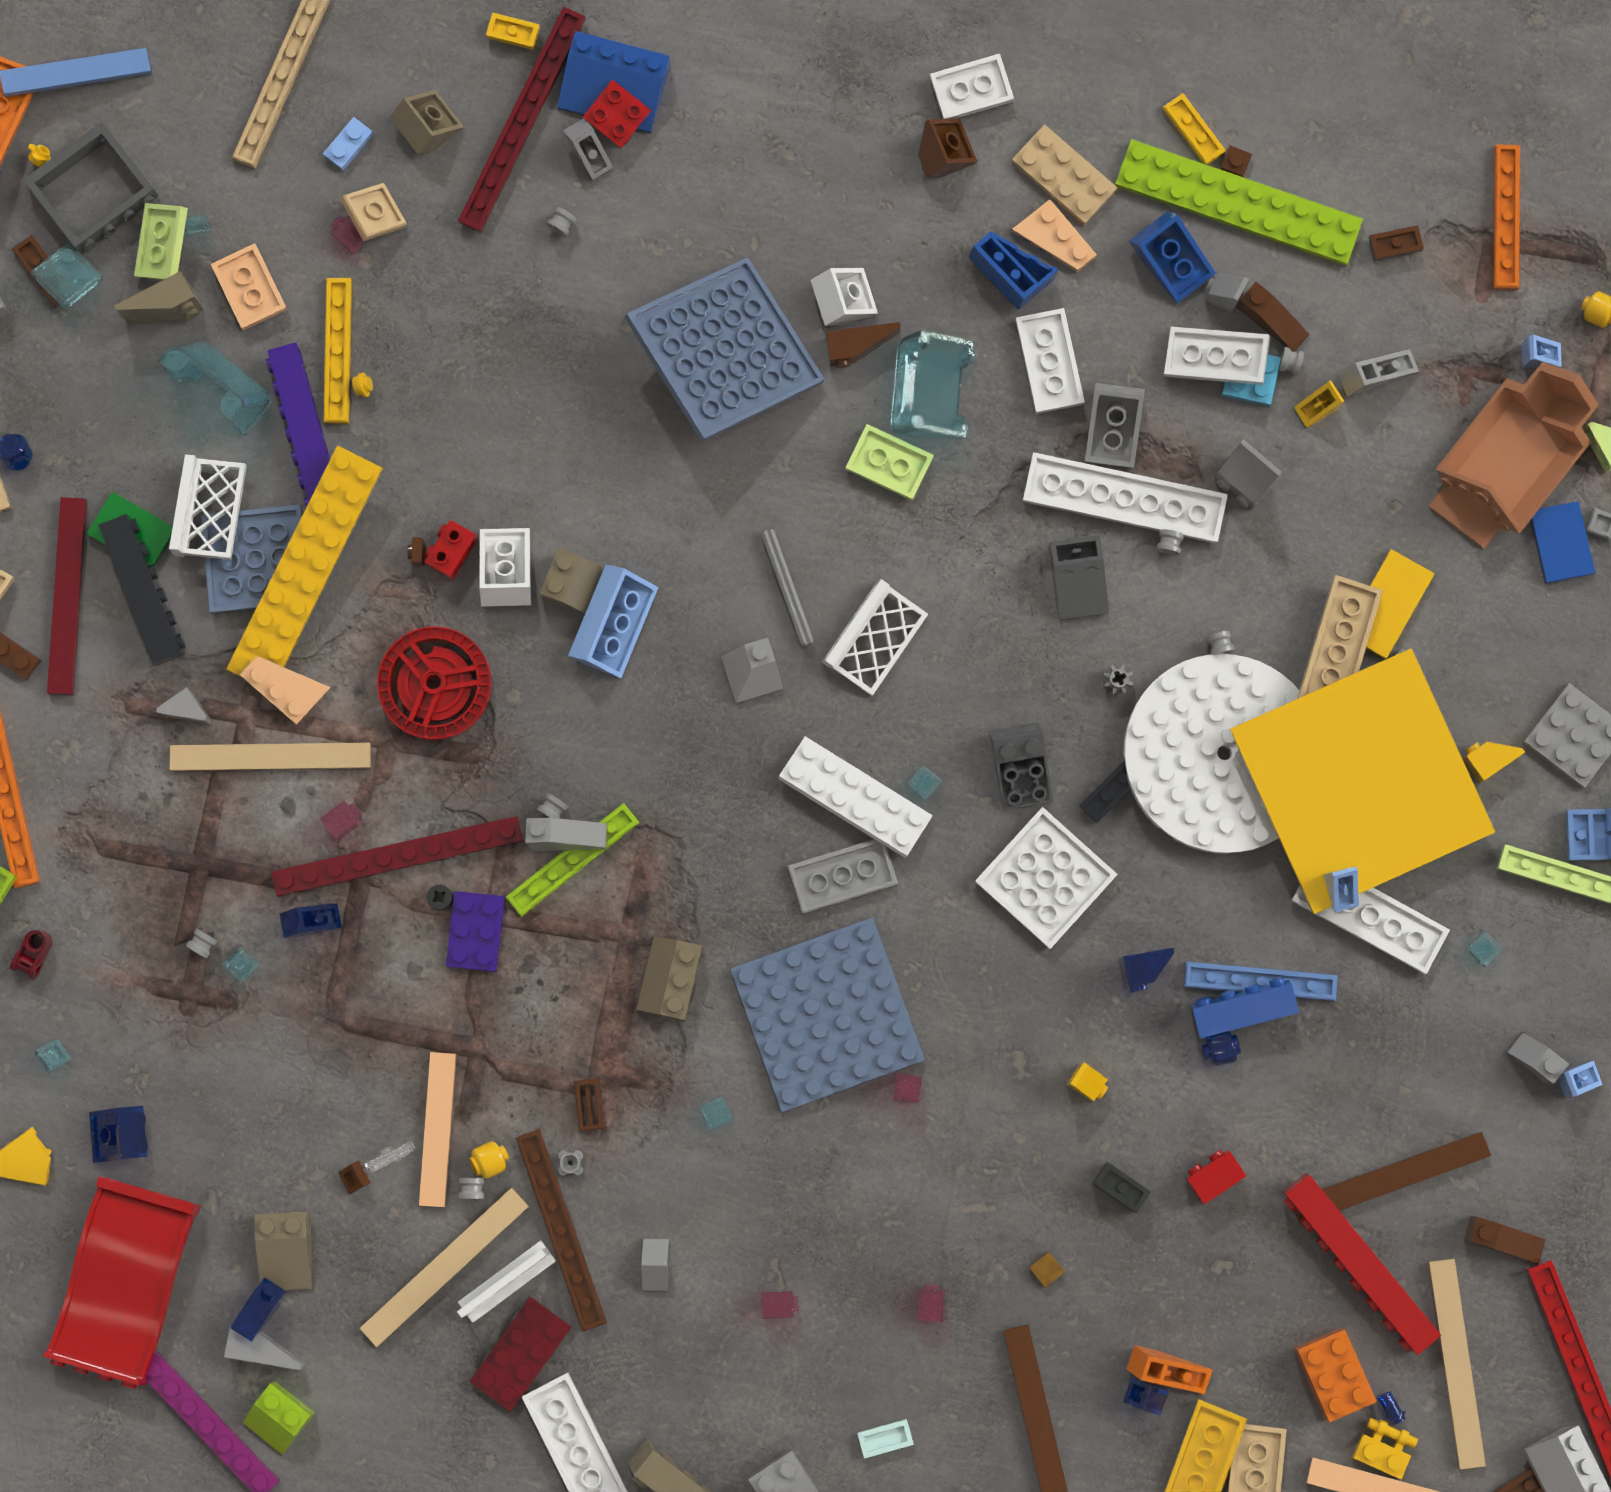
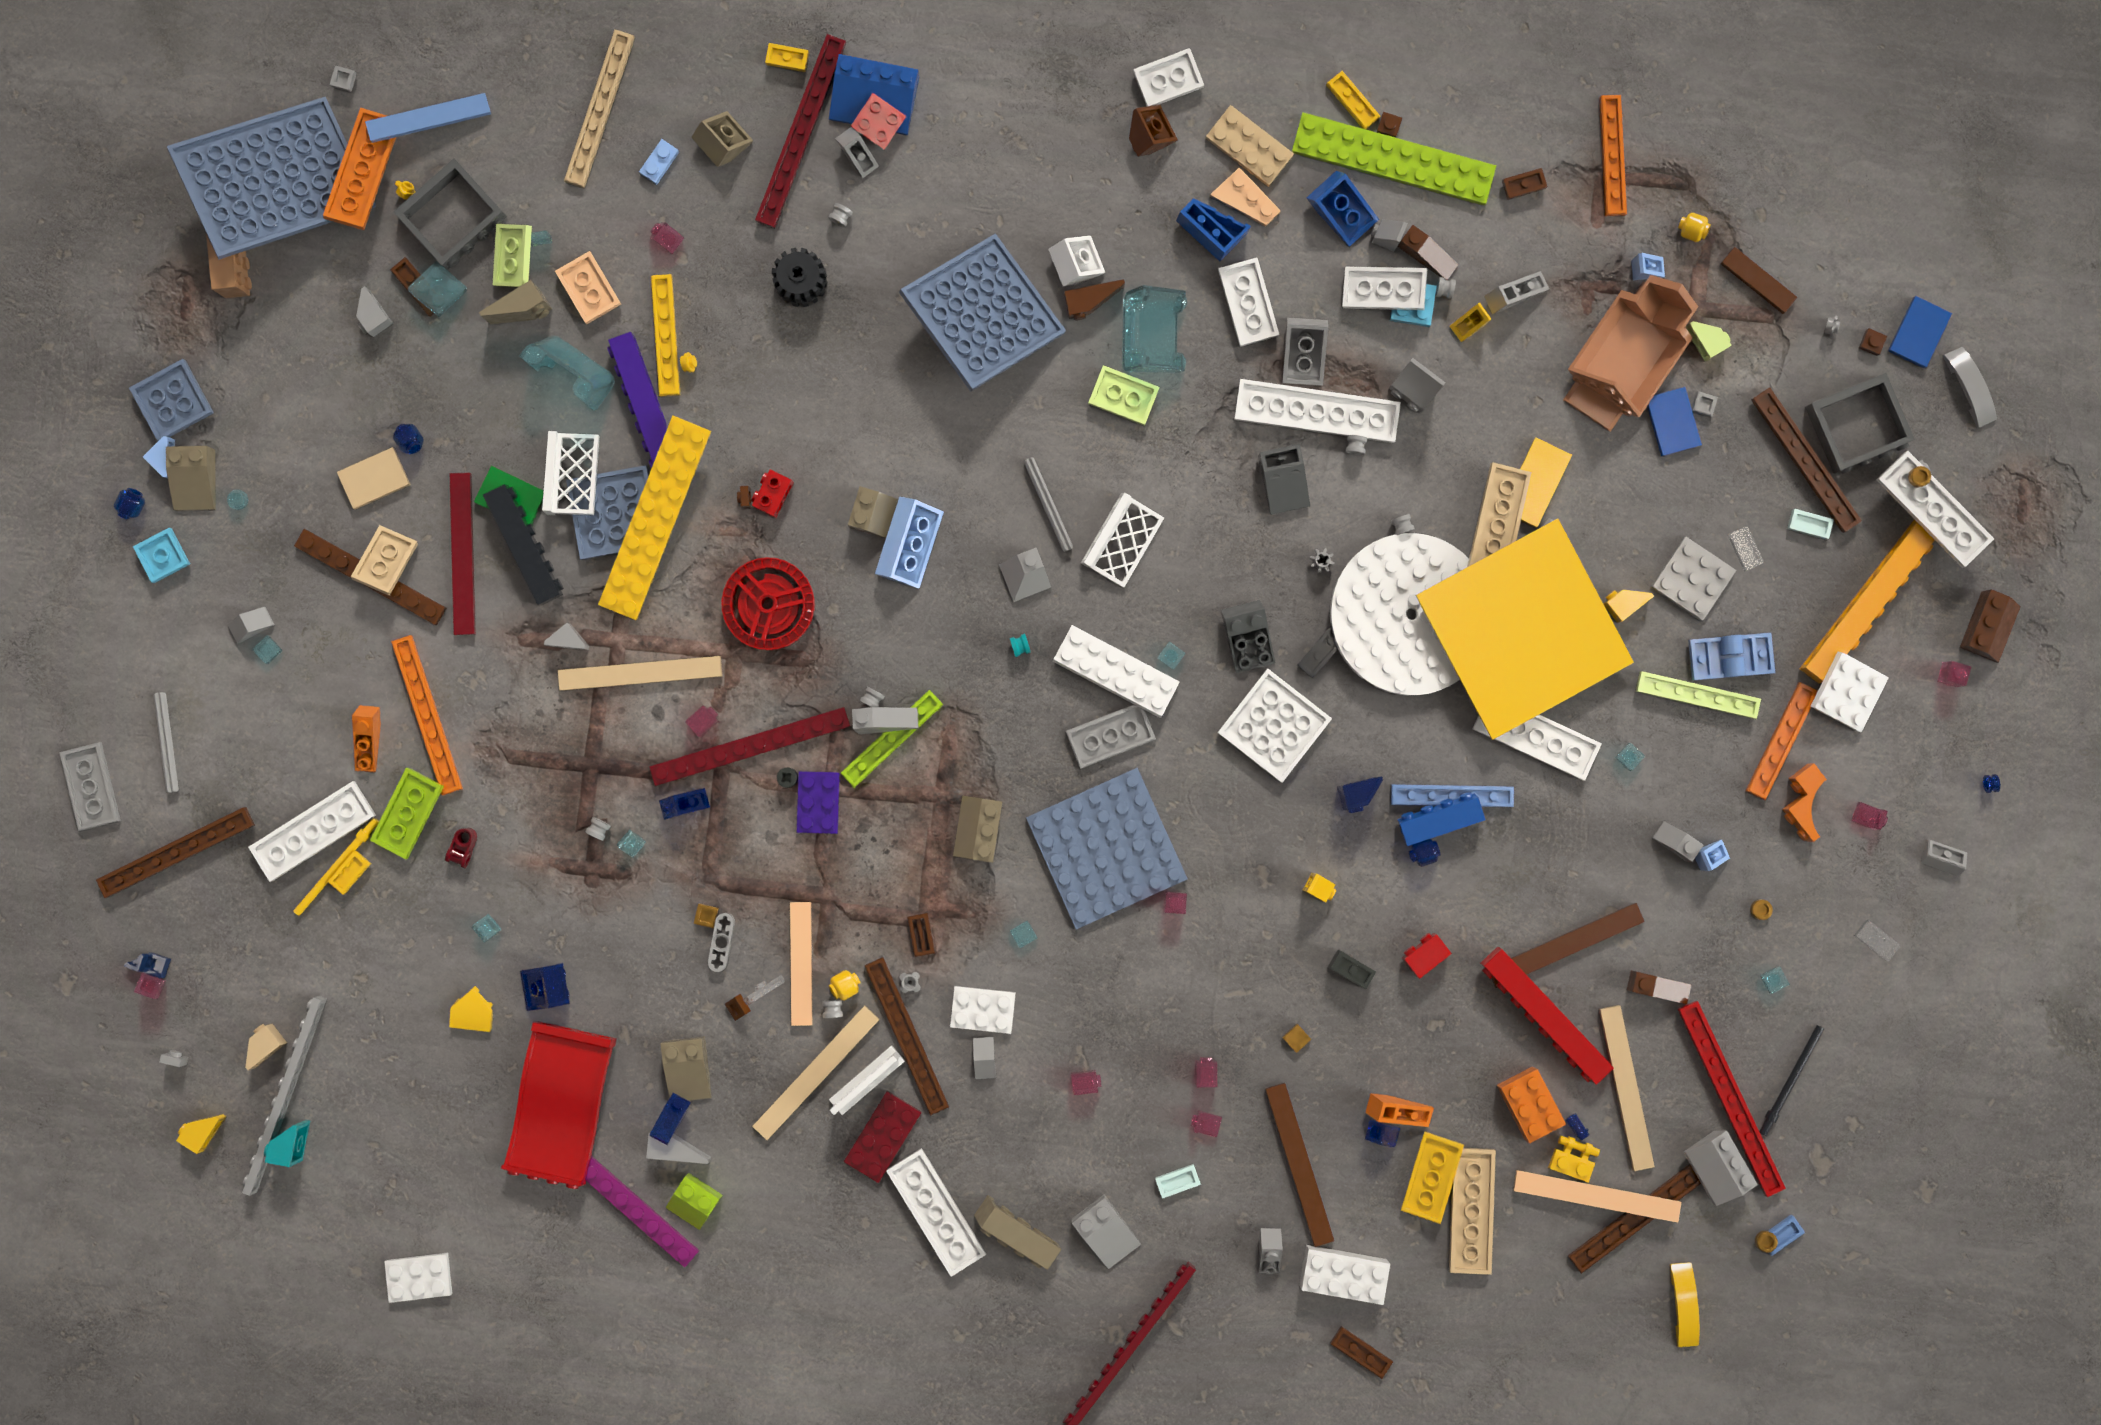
camera: 10 degrees left, 5 degrees up
(284, 688) = (647, 617): light nougat wing -> none
(325, 1061) = (706, 915): none -> pearl gold tile
(331, 1100) = (723, 958): none -> light grey beam
(373, 211) = (685, 217): tan tile -> none
(505, 567) = (817, 504): white slope -> none
(509, 305) = (799, 289): none -> black wheel
(658, 1204) = (982, 1009): none -> white plate
(739, 756) = (1020, 645): none -> teal wheel
(926, 1368) = (1206, 1123): none -> clear pink bracket
(1343, 888) = (1514, 717): light blue slope -> none

